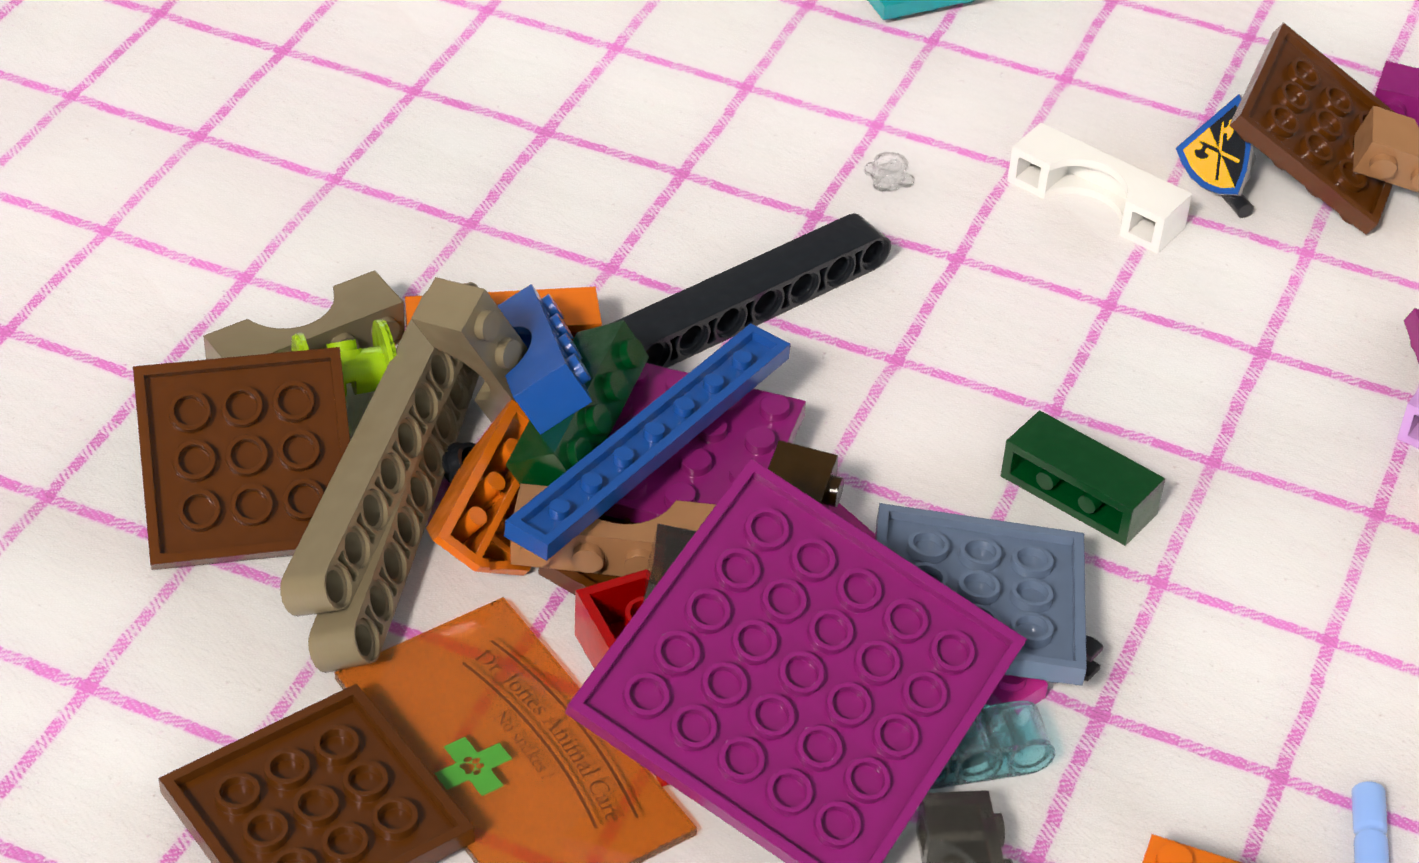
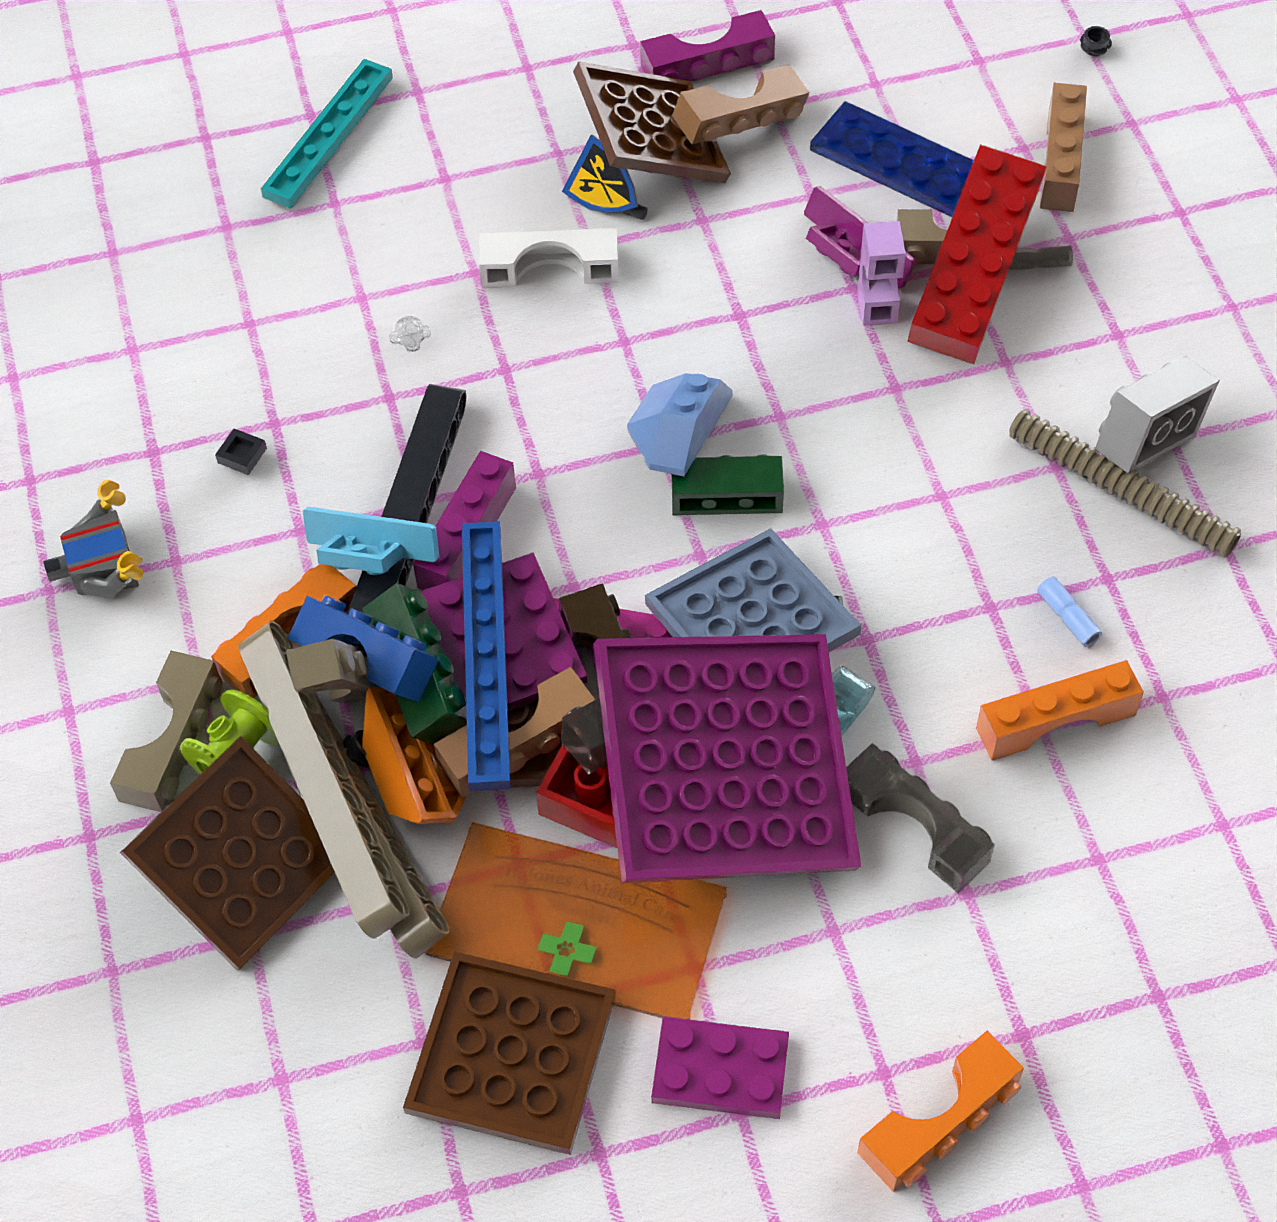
camera: 35 degrees left, 15 degrees up
(403, 168) = (98, 550): none -> torso
(621, 170) = (241, 451): none -> black plate
(649, 289) = (367, 540): none -> medium azure bracket
(820, 328) = (478, 499): none -> magenta brick
(1087, 385) = (677, 420): none -> medium blue wedge

